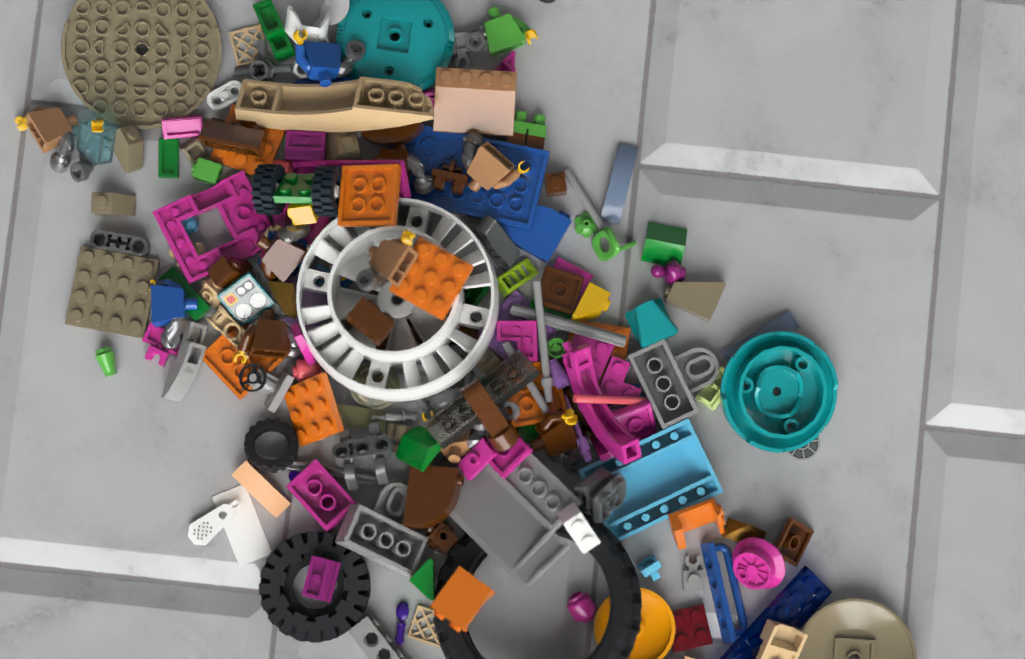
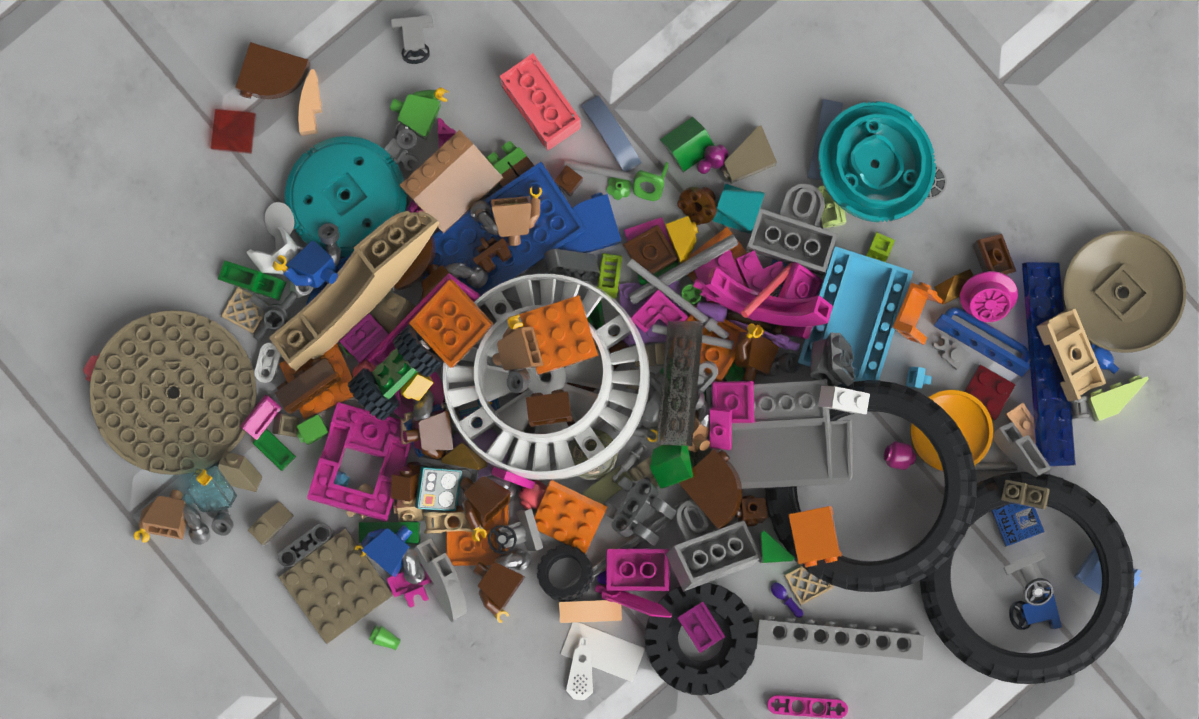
camera: 45 degrees left, 0 degrees up
(222, 406) = (500, 582): none -> reddish brown torso
(295, 514) = (633, 601): none -> dark pink piece
(499, 430) = (715, 390): reddish brown beam -> none
(592, 110) = (540, 102): none -> coral hose
(626, 292) = (698, 204): none -> reddish brown plate
(719, 452) = (880, 247): none -> lime slope

